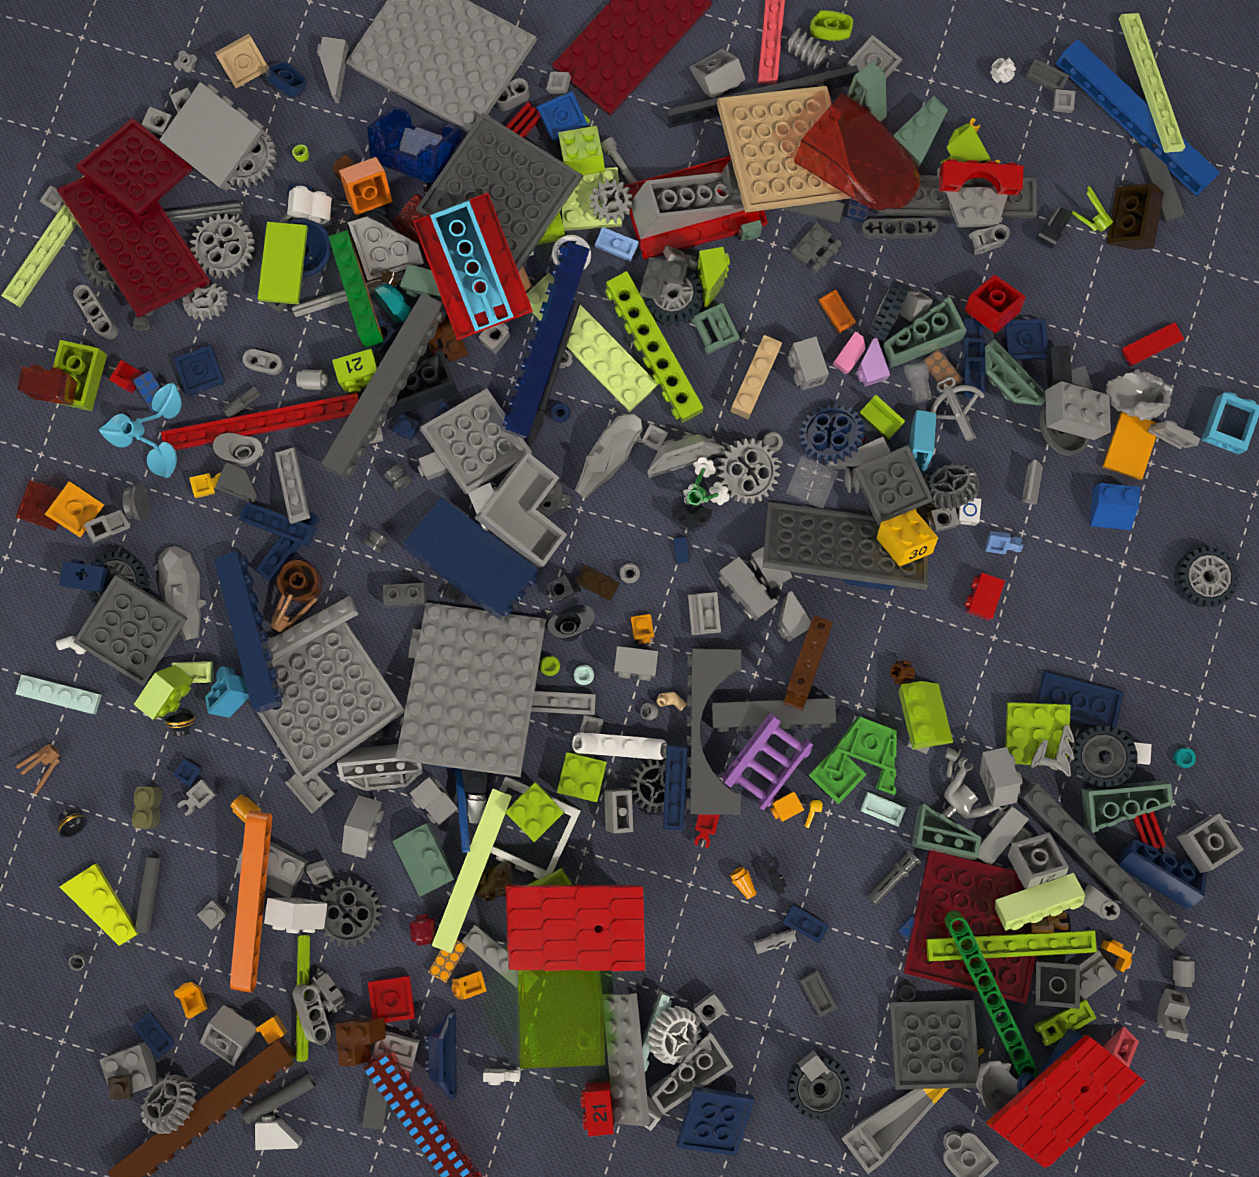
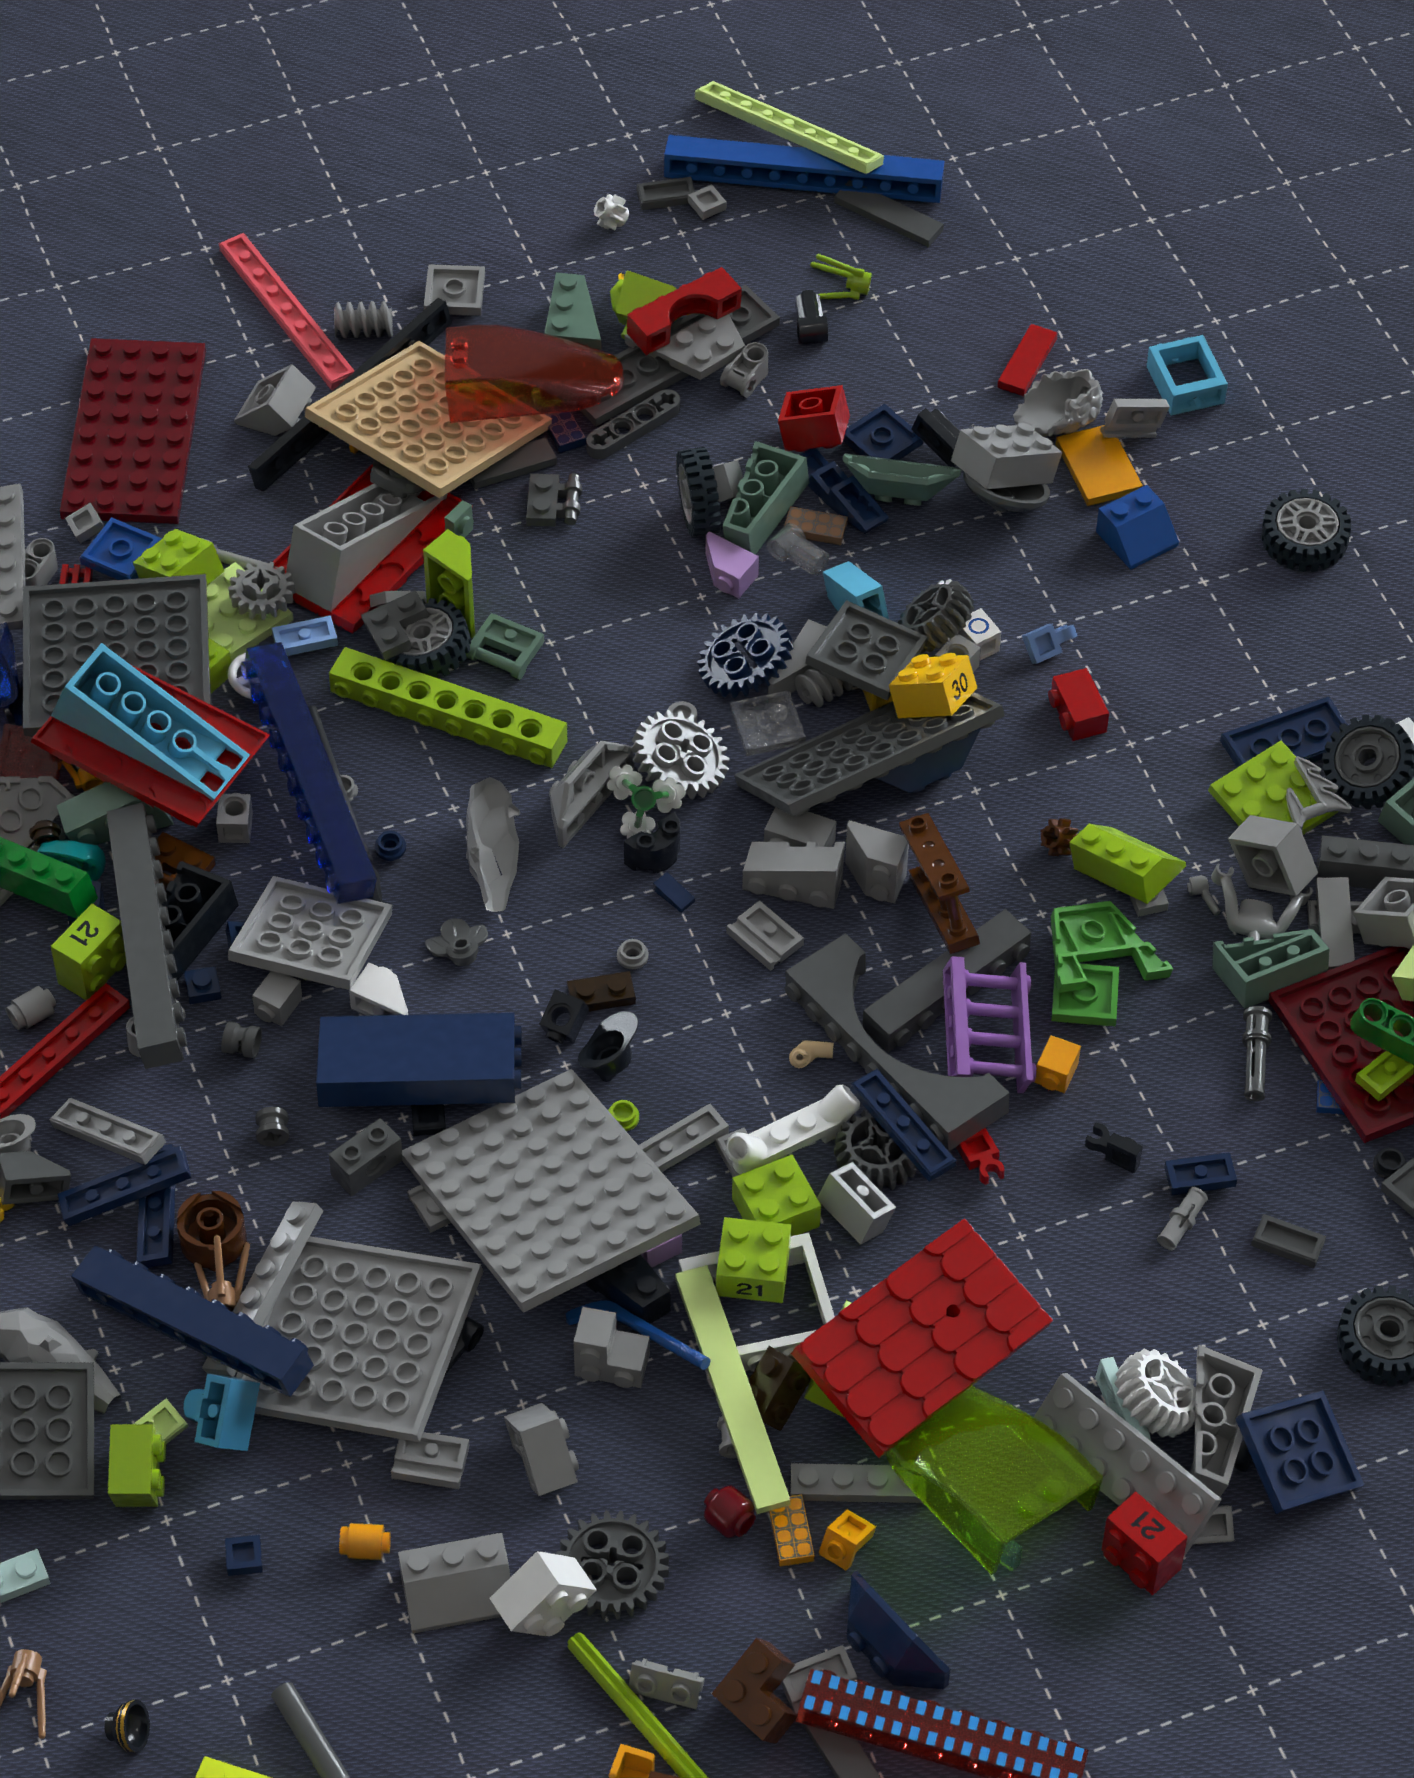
camera: 40 degrees left, 30 degrees down
(146, 801) = (222, 1631): olive brick -> none
(180, 723) = (185, 1503): black piece -> none
(198, 796) = (283, 1572): light grey plate -> none
(212, 914) = (425, 1704): light grey plate -> none
(251, 901) = (471, 1625): orange beam -> none
(318, 1020) = (669, 1710): light grey beam -> none
(319, 872) = (528, 1541): light grey plate -> none
(377, 768) = (510, 1363): light grey wedge -> none
(392, 999) = (763, 1616): red plate -> none
(424, 859) = (656, 1433): sand green slope -> none
(475, 805) = (669, 1322): white cone -> none
(496, 1076) = (980, 1613): white plate -> none
(513, 512) = (433, 968): light grey piece -> none
(583, 674) = (675, 1097): light aqua plate -> none
(600, 353) = (392, 758): yellowish green plate -> none
(635, 662) = (729, 1029): light grey brick -> none
(642, 628) = (703, 1002): light orange bracket -> none
(649, 711) = (791, 1085): light grey hinge -> none
(654, 437) = (533, 797): light grey plate -> none
(713, 1000) = (1177, 1333): light grey brick -> none
(742, 880) = (1082, 1181): light orange cone -> none
(756, 377) = (605, 667): tan arch -> none
(808, 364) = (652, 604): light grey brick -> none
(813, 1066) = (1357, 1297): light grey panel -> none
(815, 806) = (1090, 1047): yellow hand -> none
(831, 26) = (373, 283): lime piece -> none
(837, 311) = (636, 544): orange tile -> none
(850, 353) = (692, 573): bright pink piece -> none
(870, 90) = (476, 298): sand green wedge -> none
(881, 417) = (790, 604): lime panel -> none
(882, 809) = (1173, 996): light aqua tile -> none
(960, 415) = (876, 547): light grey piece -> none
(1032, 482) = (1022, 566): light grey slope -> none
(1135, 216) = (892, 255): dark brown slope -> none

